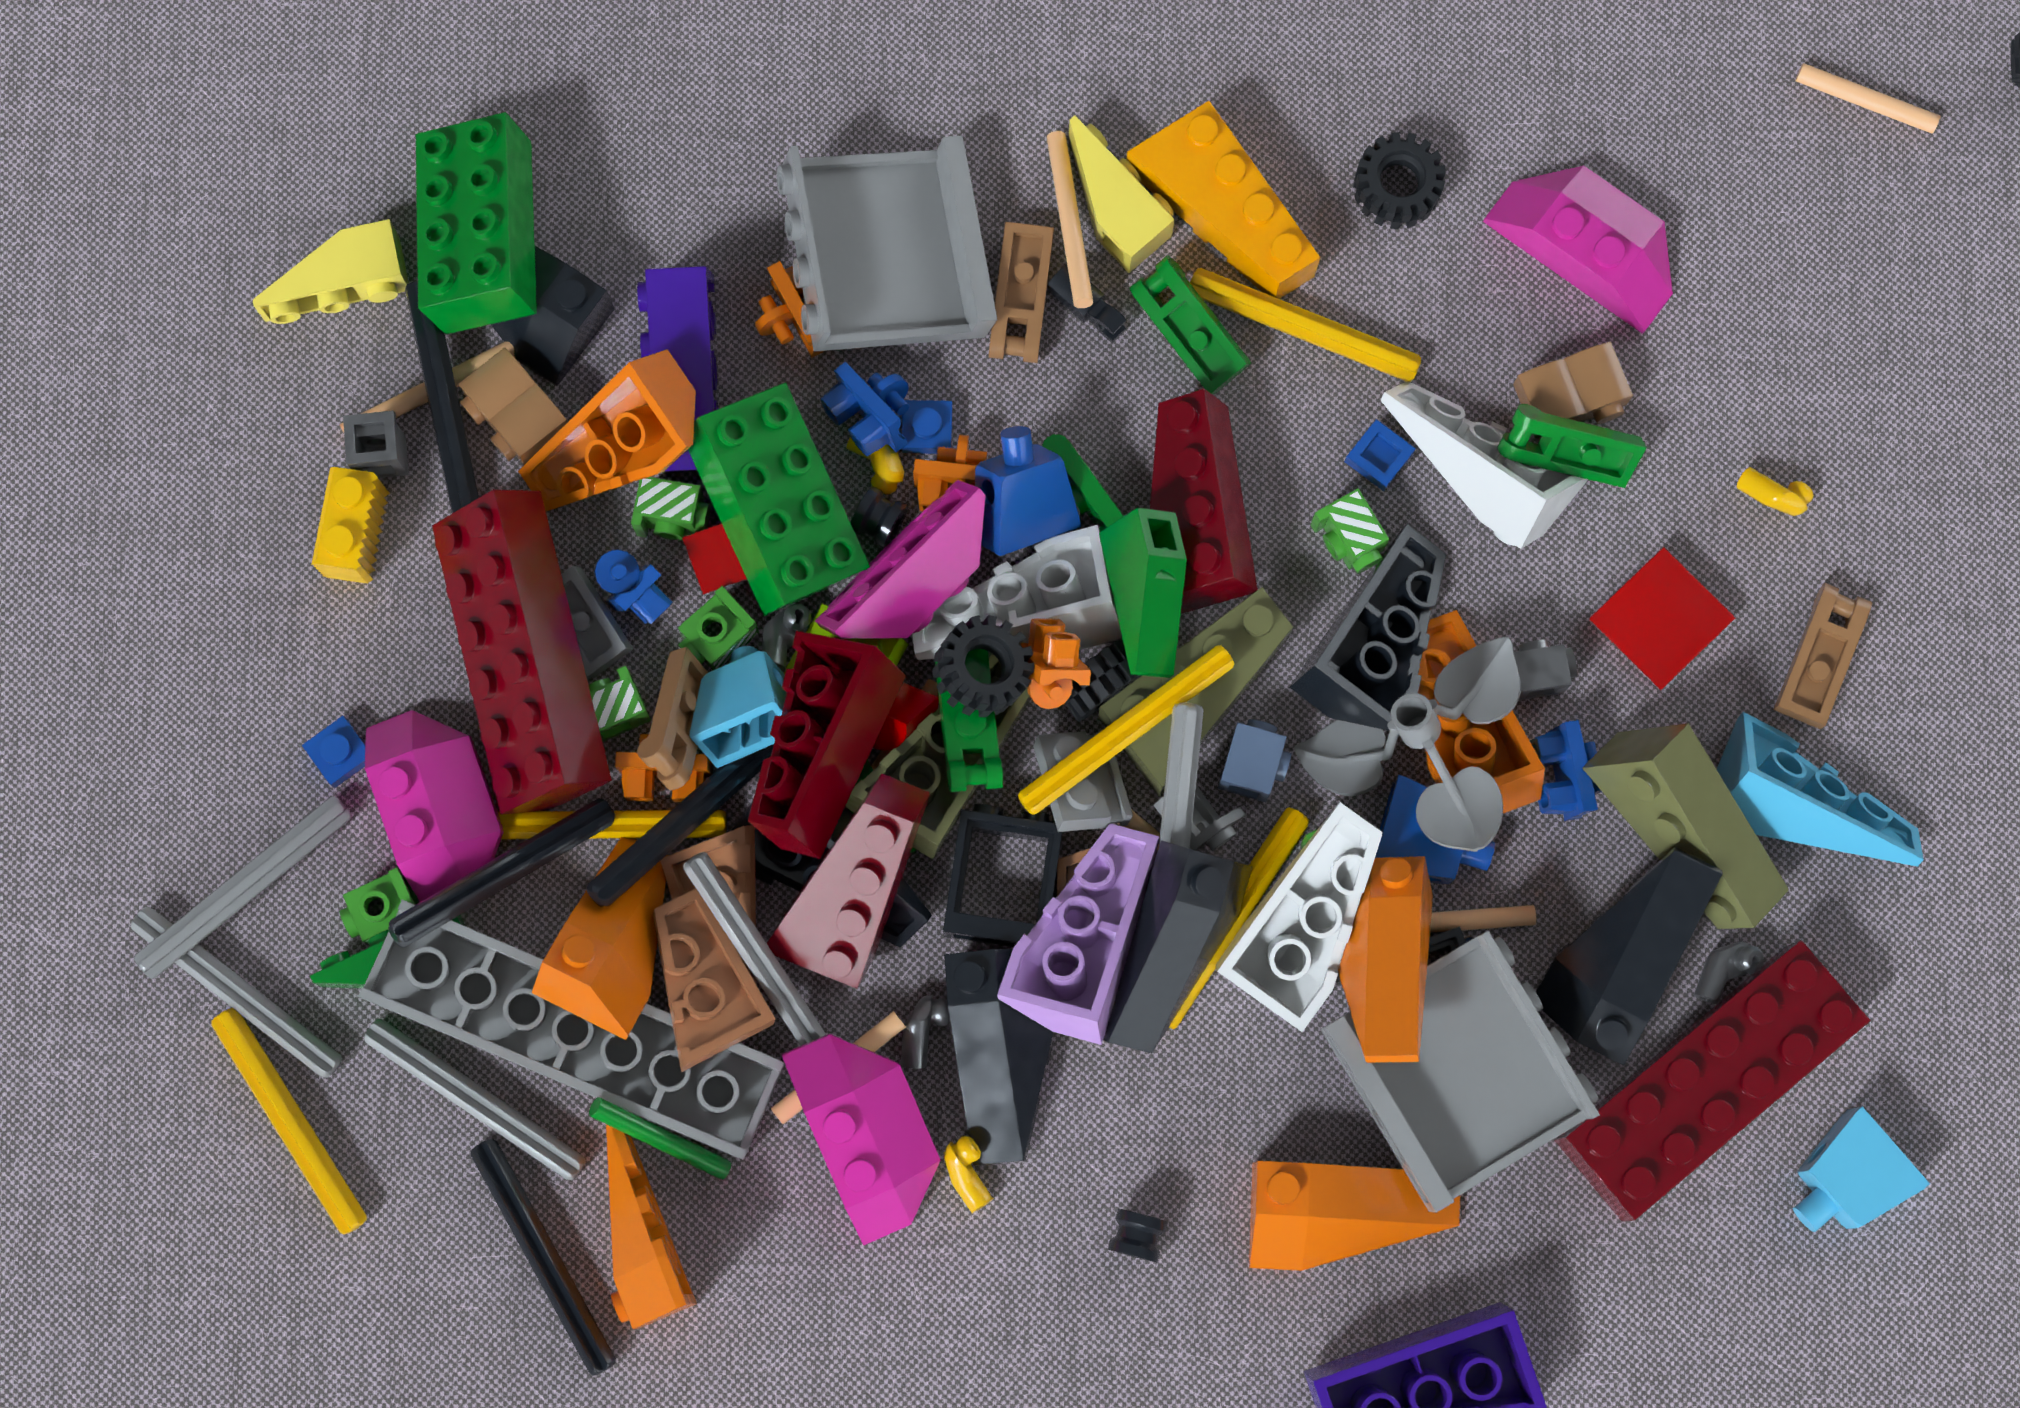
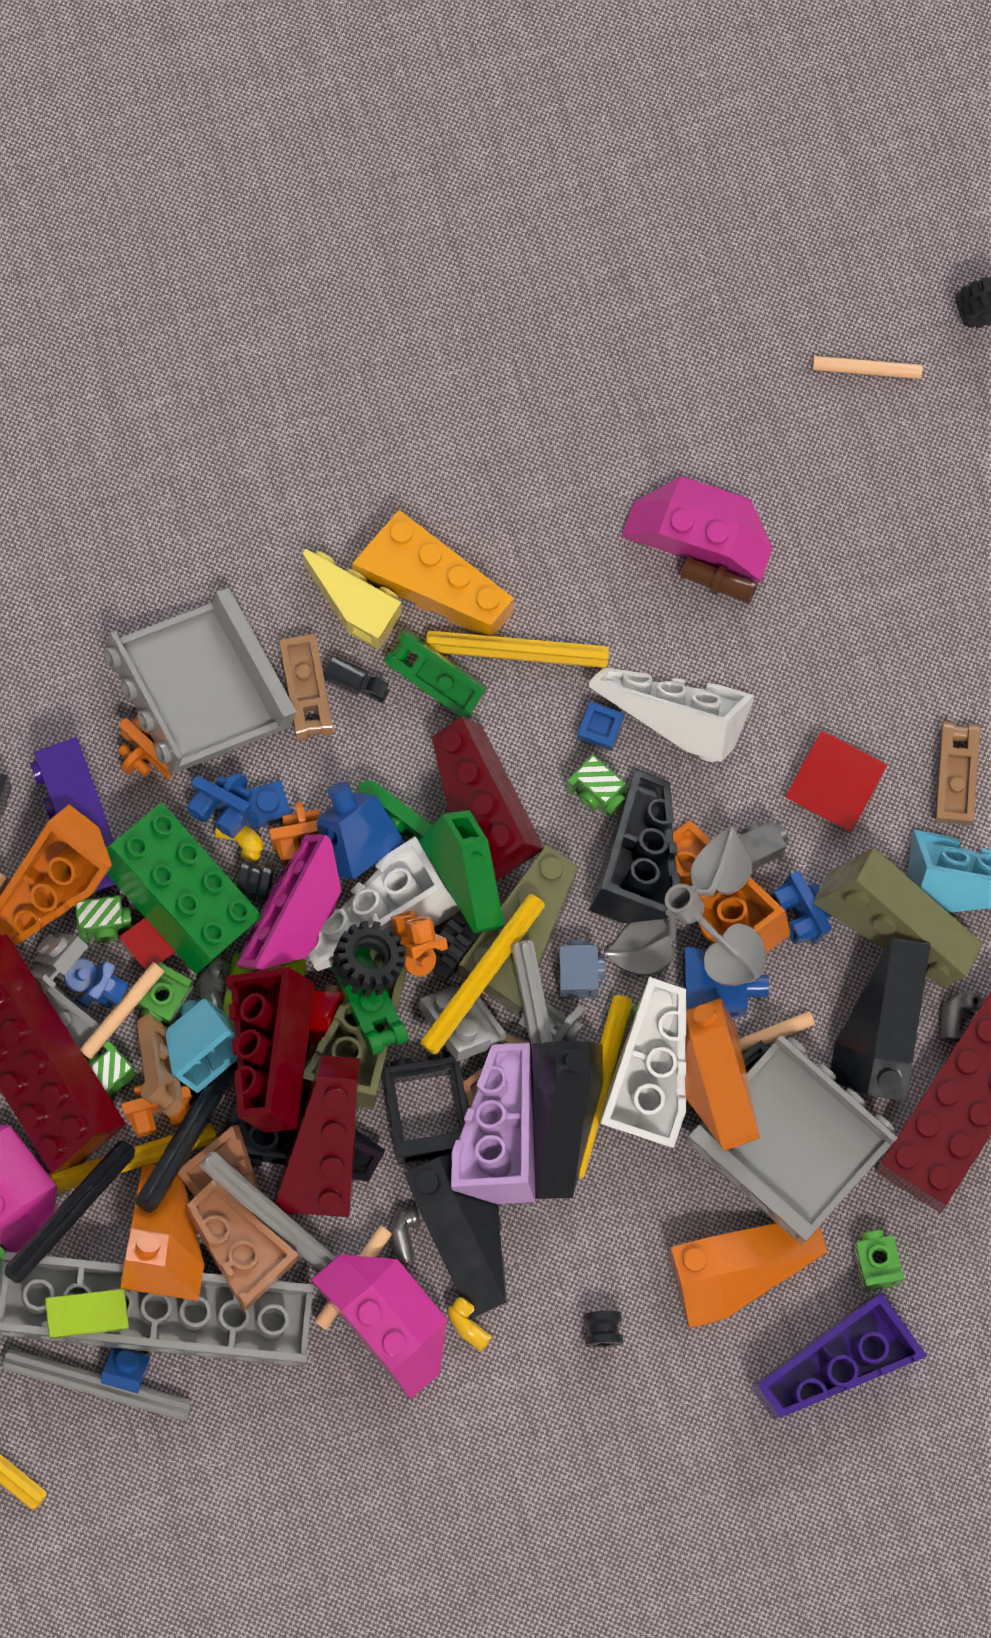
camera: 20 degrees left, 5 degrees down
(478, 1012) = (86, 1314): none -> lime tile
(514, 1093) = (125, 1370): none -> blue plate
(543, 1257) = (183, 1479): black axle -> none
(594, 540) = (56, 957): none -> light grey plate
(643, 1253) = (259, 1456): orange wedge -> none
(654, 633) = (121, 1010): none -> light nougat bar
(659, 1138) = (242, 1366): green bar -> none
(1069, 220) = (324, 624): light nougat bar -> none
(1404, 153) = (557, 505): black tyre -> none
(1507, 1275) = (875, 1275): none -> bright green brick
(1572, 447) = (734, 679): green plate -> none
(1578, 386) = (723, 639): medium nougat brick -> none
(1590, 313) = (719, 580): none -> reddish brown pin
(1772, 494) = (885, 669): yellow arm -> none

